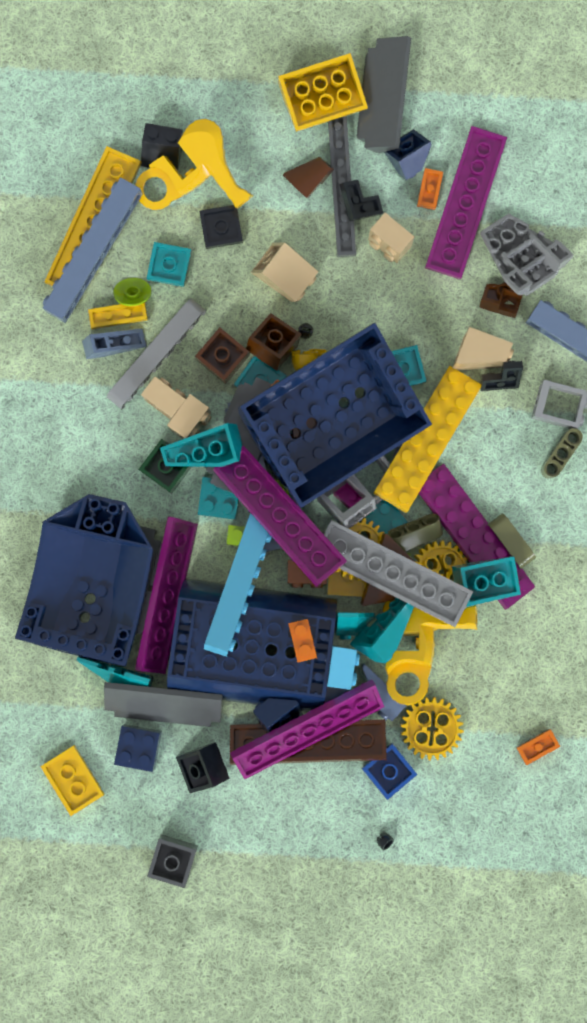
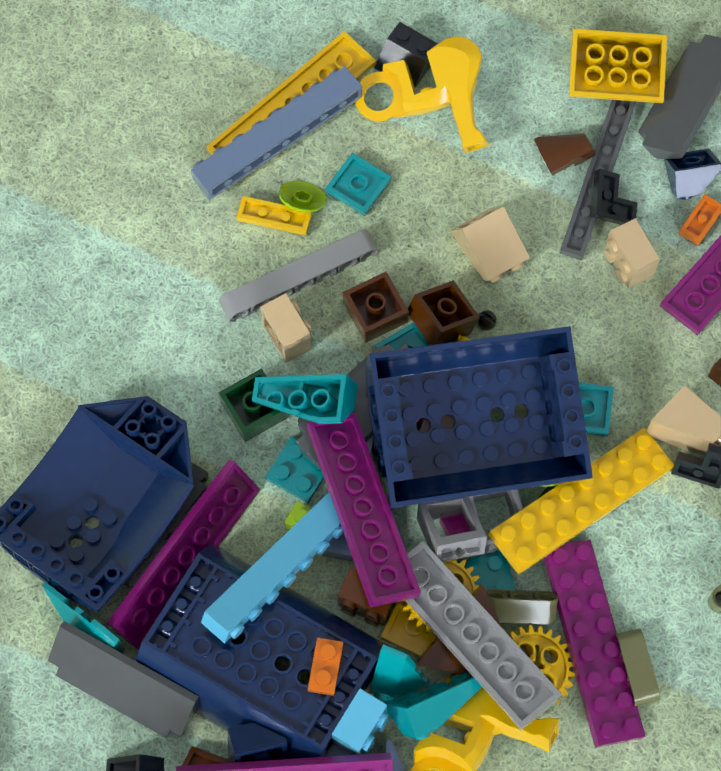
camera: 20 degrees right, 15 degrees down
(113, 343) = (253, 243): sand blue slope -> none
(138, 747) = (66, 724): dark blue brick -> none
(190, 418) = (306, 357): tan brick -> none
(221, 226) = (437, 167): black plate -> none
(488, 579) = (588, 696): teal slope -> none

